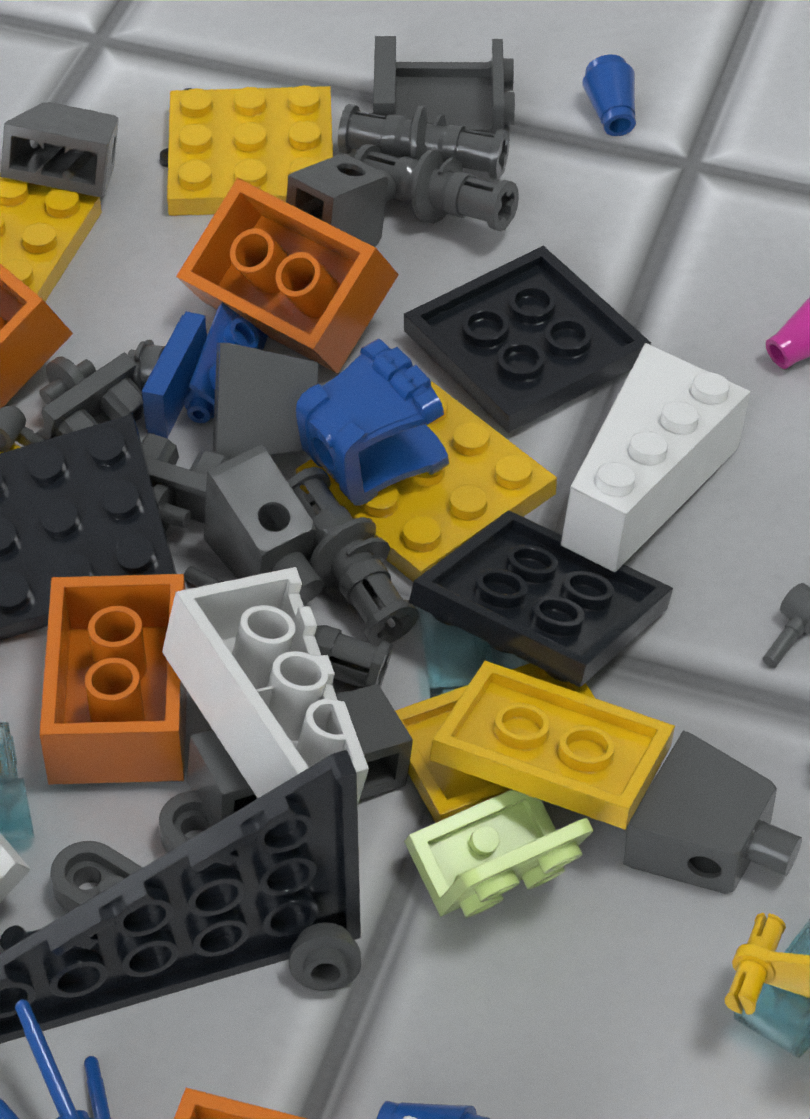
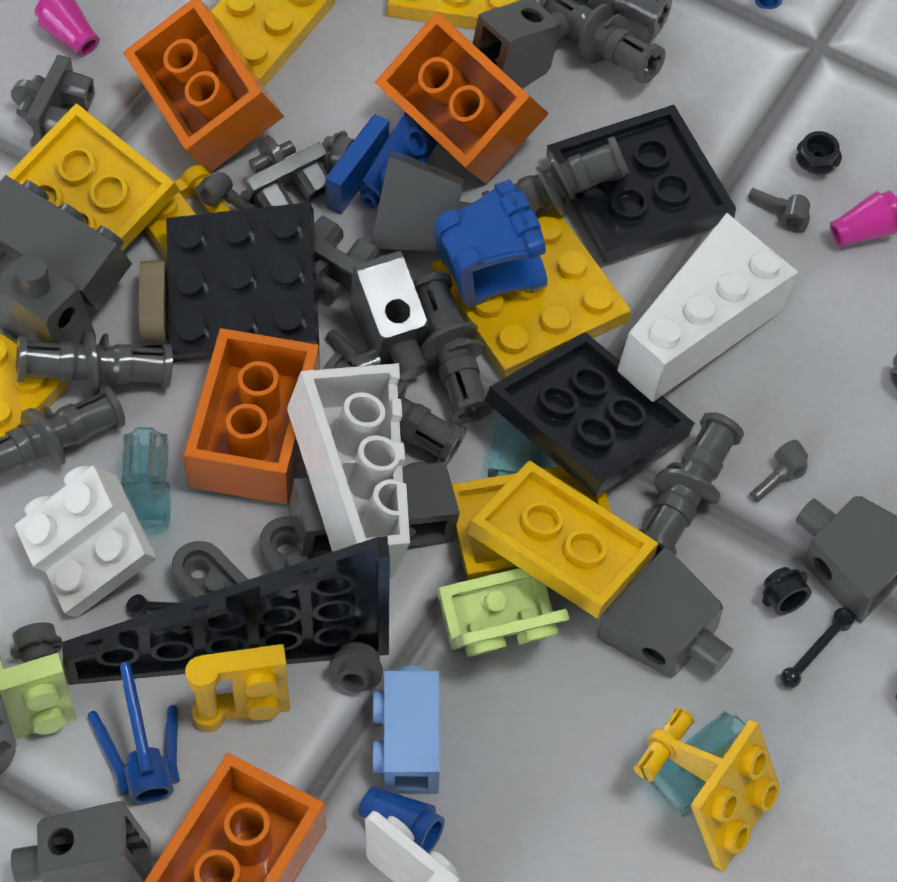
camera: 10 degrees right, 10 degrees up
(202, 1004) = (257, 686): none -> yellow plate
(418, 1022) = (411, 731): none -> light blue brick
(455, 331) = (571, 177): none -> dark grey piece
(691, 650) = (689, 482): none -> dark grey piece
(719, 335) = (794, 210): none -> dark grey hand
(729, 270) = (821, 145): none -> black plate

